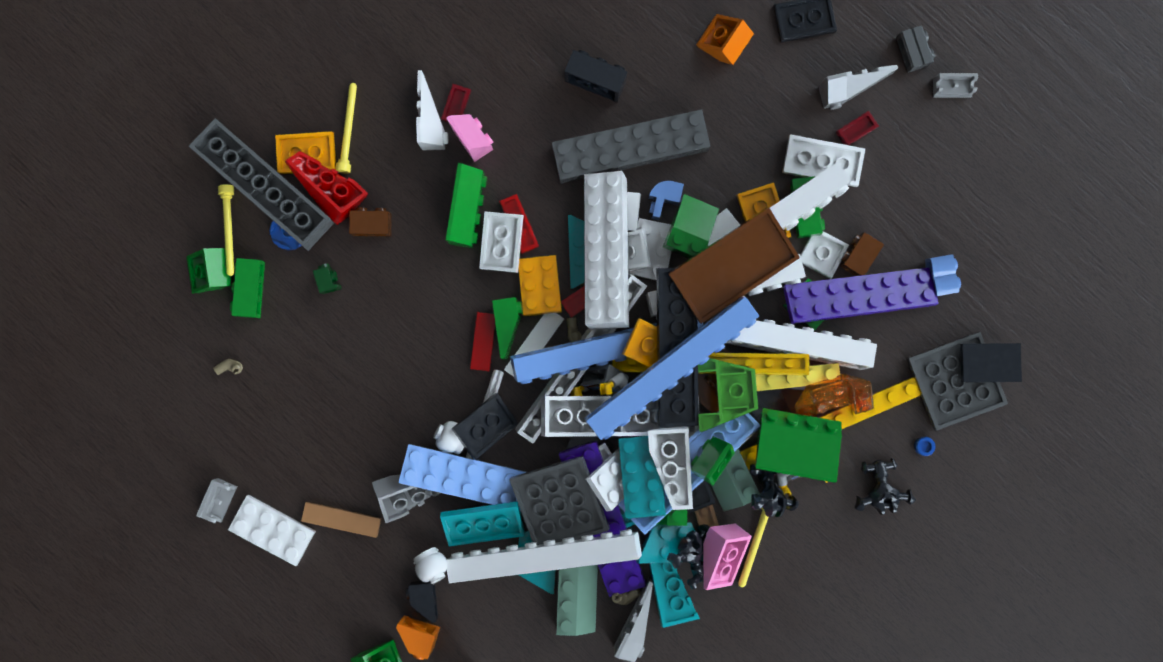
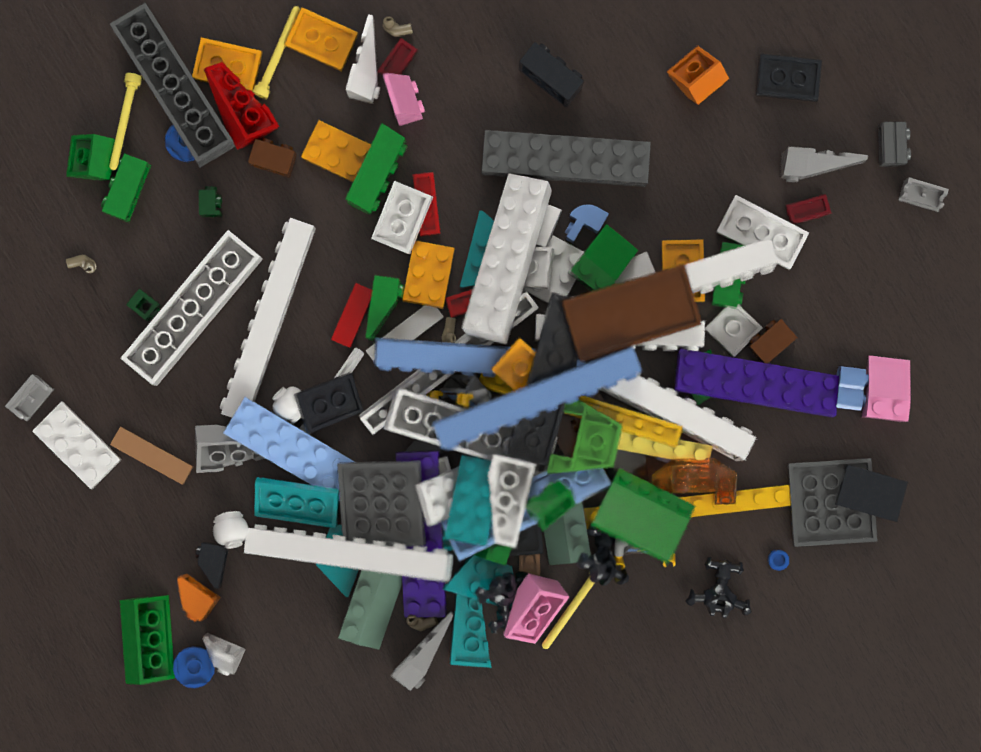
camera: 15 degrees right, 0 degrees up
(289, 385) = (137, 304): none -> dark green brick
(337, 378) = (191, 308): none -> white brick
(382, 105) = (321, 39): none -> light orange plate
(409, 364) = (269, 315): none -> white brick
(424, 200) = (336, 151): none -> light orange plate
(444, 77) = (395, 29): none -> dark tan arm
(976, 266) = (887, 389): none -> bright pink slope

